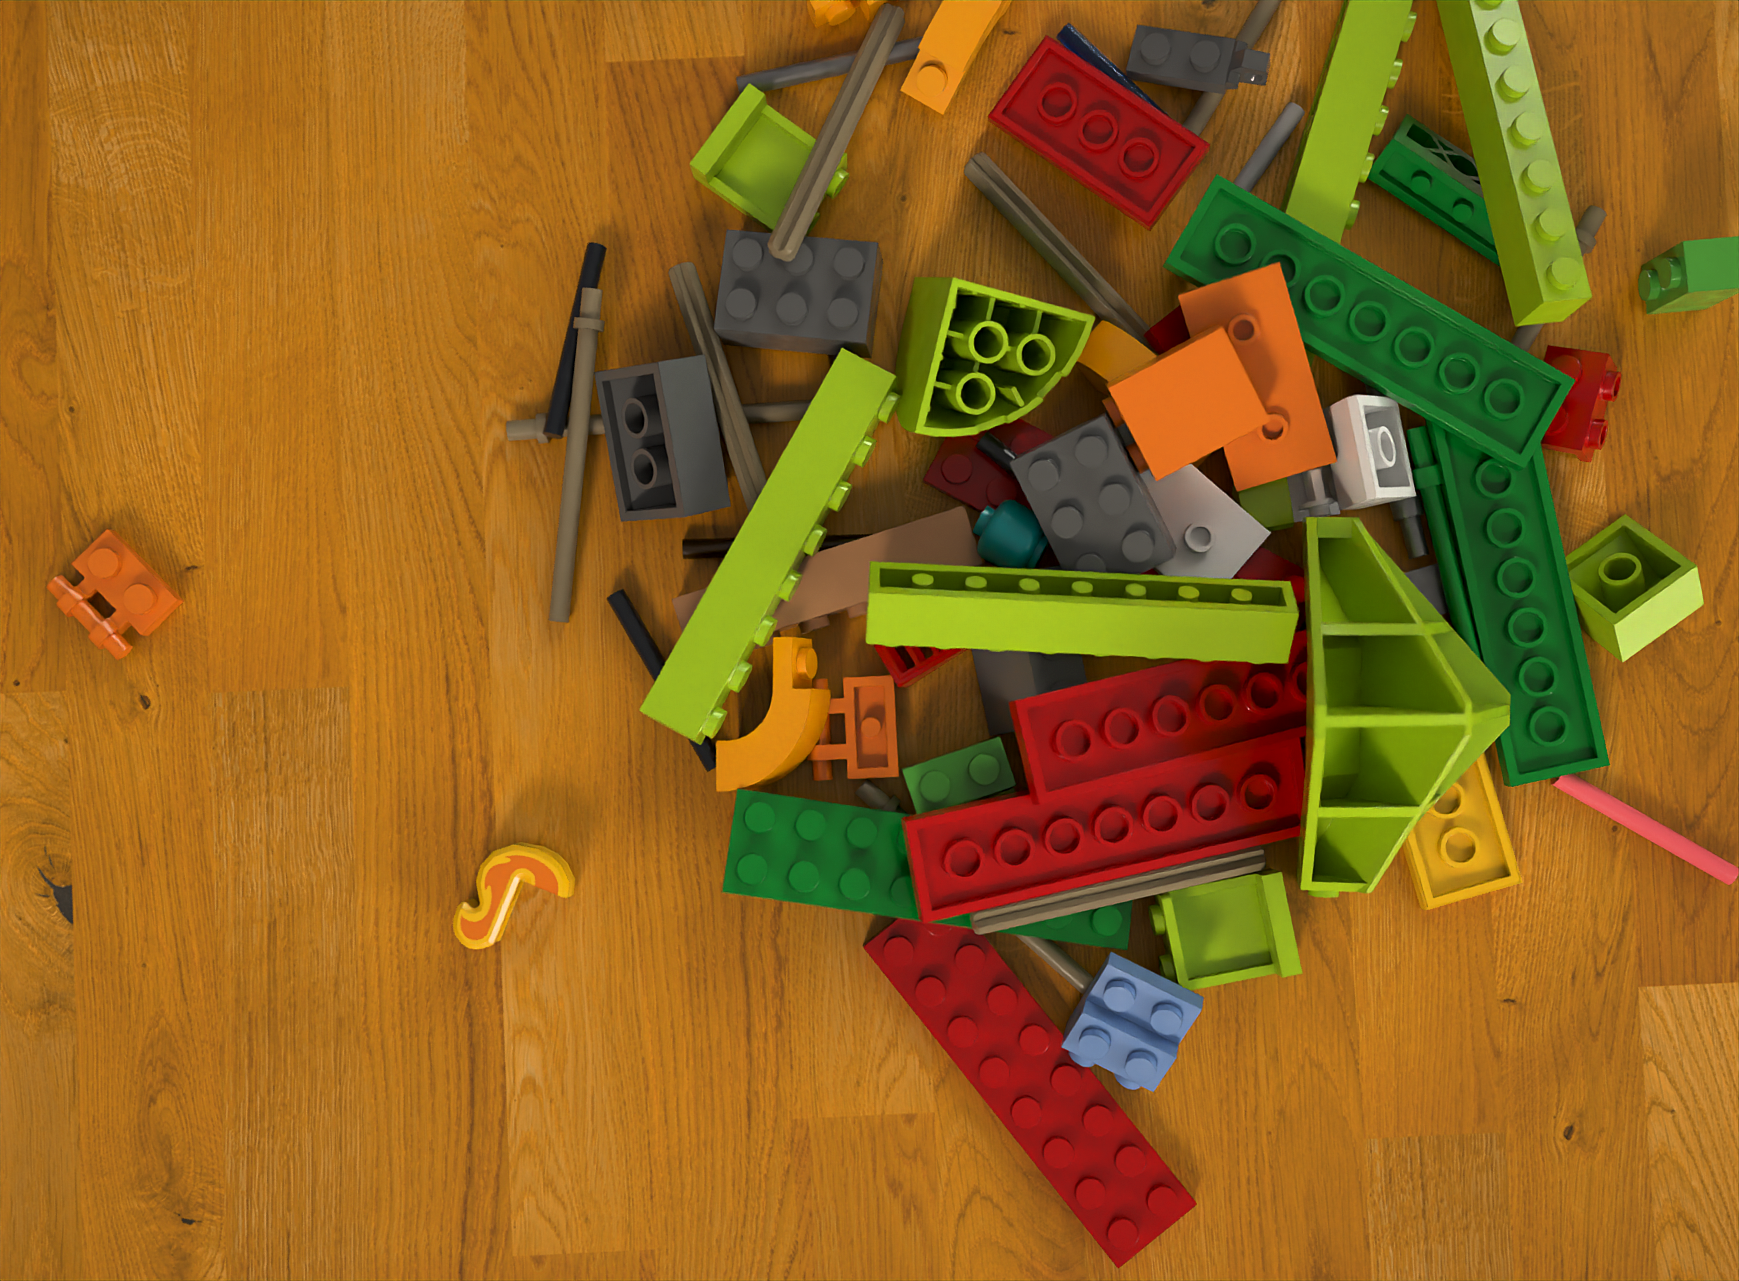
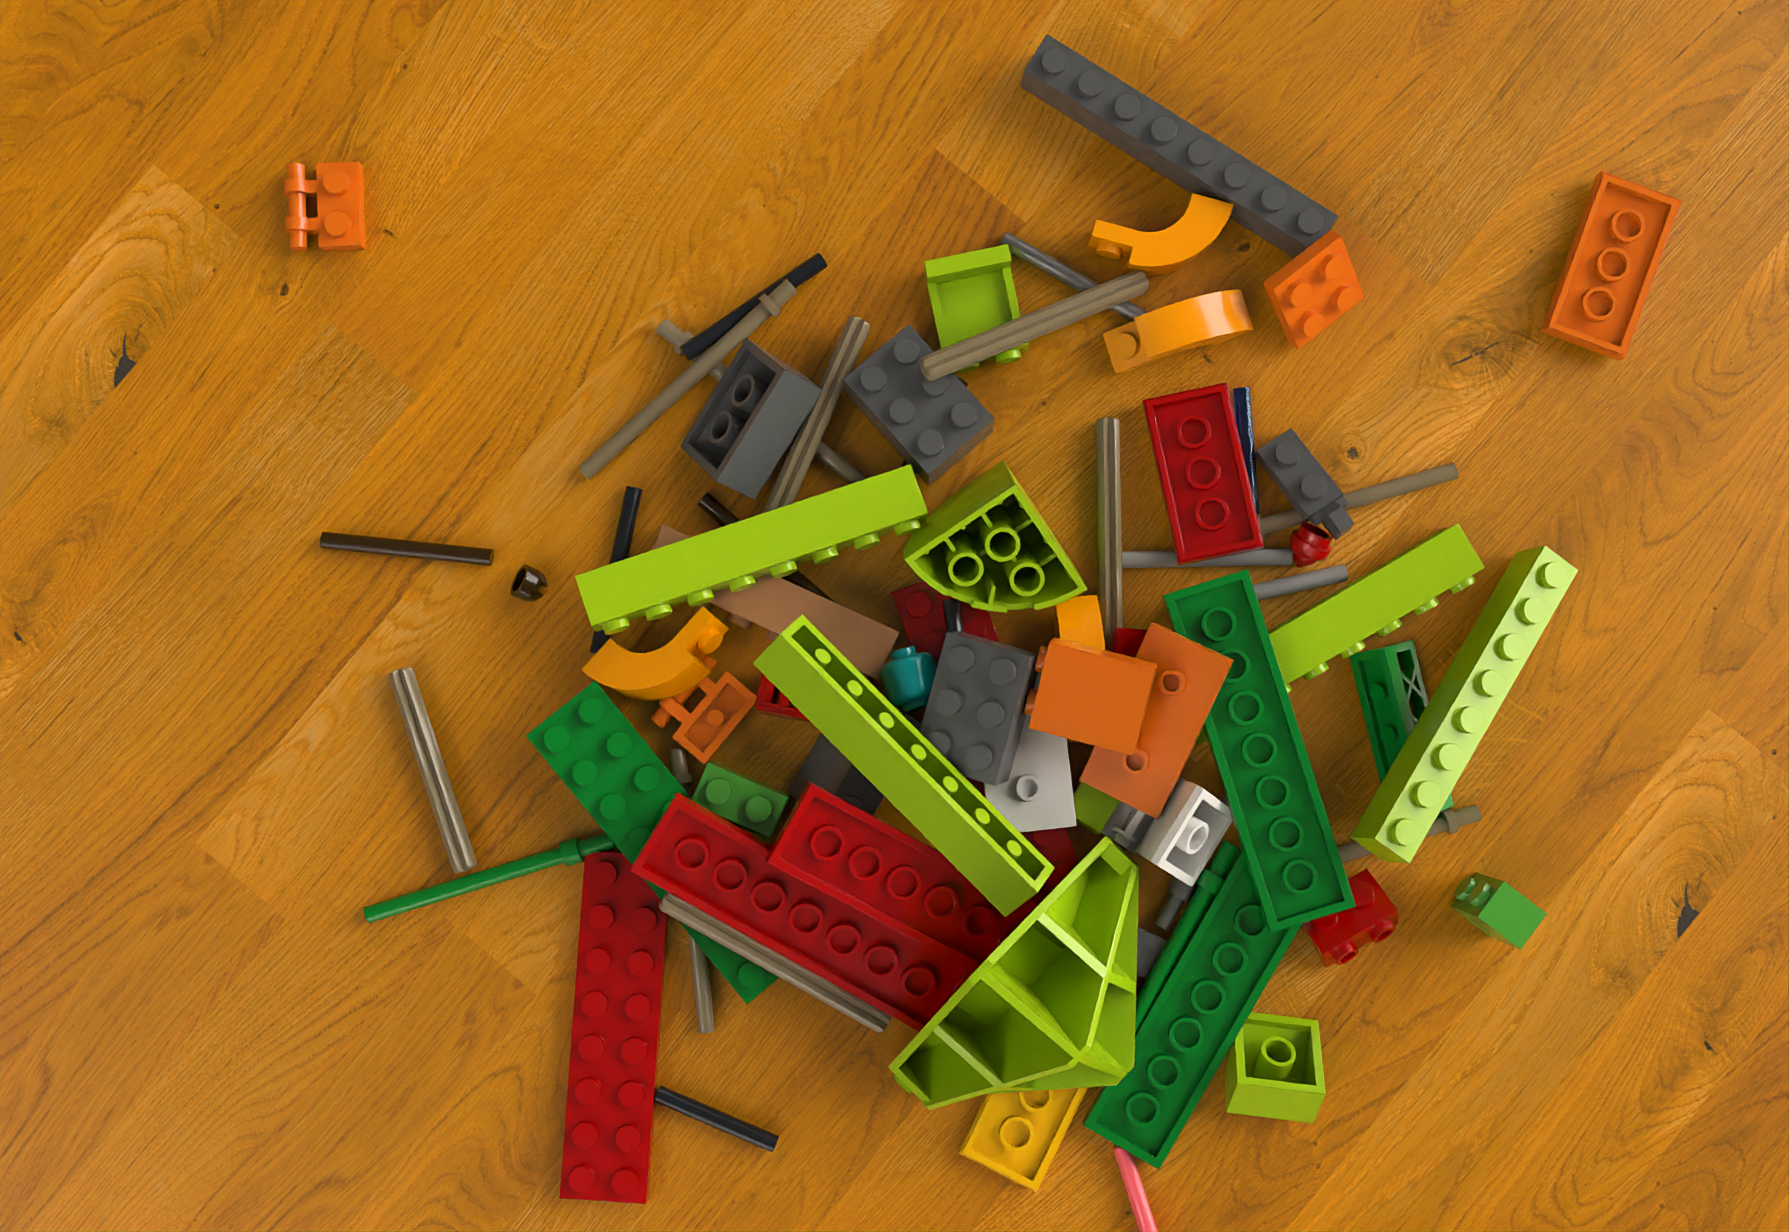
camera: 45 degrees right, 0 degrees up
(463, 828) = (407, 548): none -> dark brown bar
(499, 887) = (396, 603): yellow animal -> none
(598, 761) = (527, 583): none -> dark brown hinge
(664, 1000) = (432, 769): none -> dark tan axle
(850, 962) = (570, 852): none -> green bar
(1130, 1023) = (706, 1052): medium blue plate -> none
(1136, 233) = (1167, 559): none -> light grey bar
(1194, 1073) = (716, 1118): none -> black bar
(1226, 931) = (819, 1050): lime panel -> none
(1245, 111) = (1309, 544): none -> red plate

